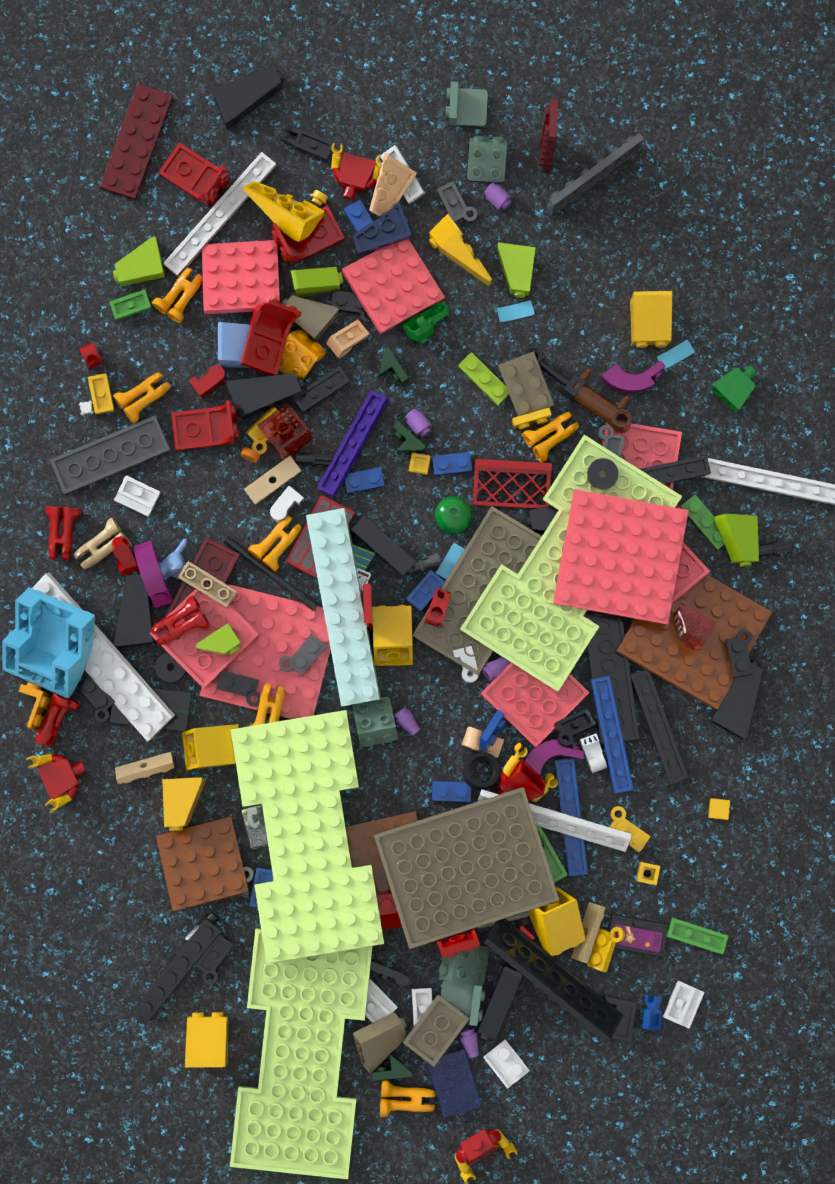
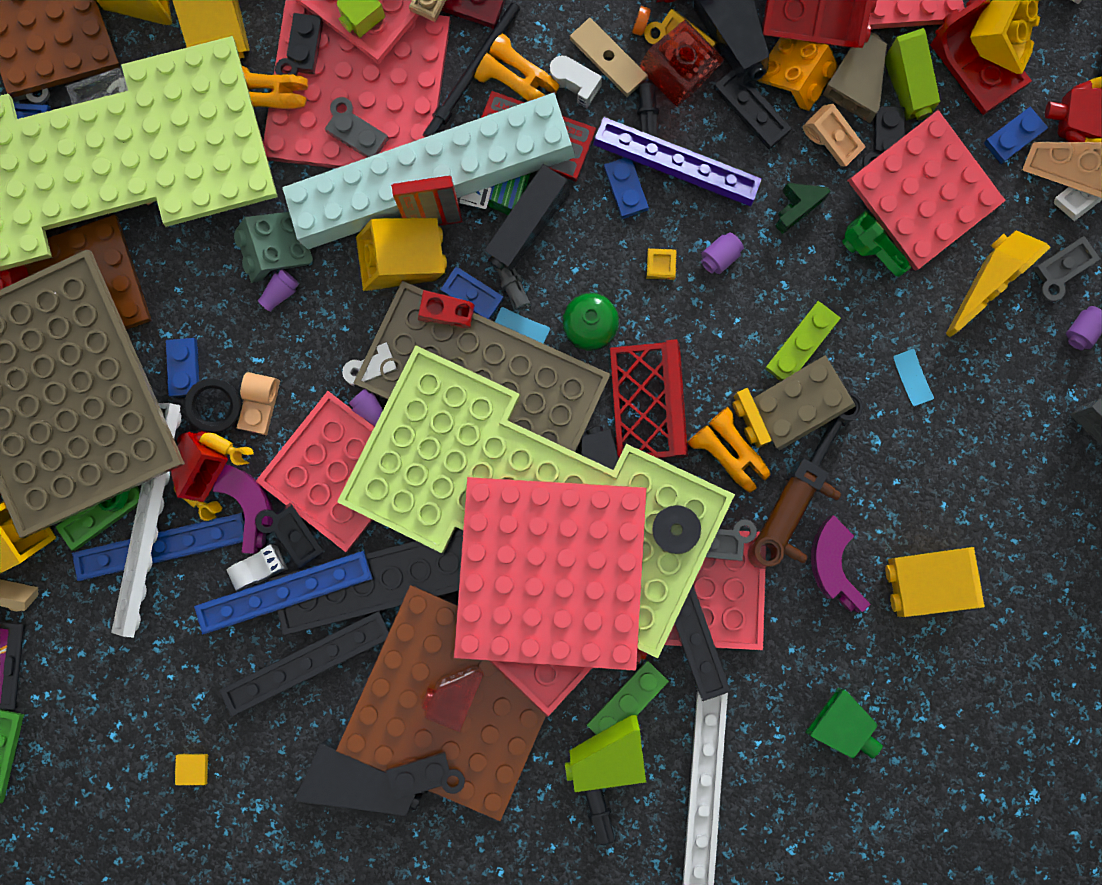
camera: 90 degrees right, 0 degrees up
(319, 198) = (1040, 69): yellow plate -> none
(383, 232) = (1004, 165): dark blue wing -> none
(411, 443) = (689, 245): dark green slope -> none
(452, 463) = (667, 310): blue plate -> none
(490, 734) = (262, 408): blue plate -> none
(517, 267) = (982, 372): lime slope -> none
(638, 837) = (146, 637): yellow hinge -> none
(653, 878) = (73, 670): yellow plate -> none
(676, 354) = (883, 629): medium azure sticker -> none

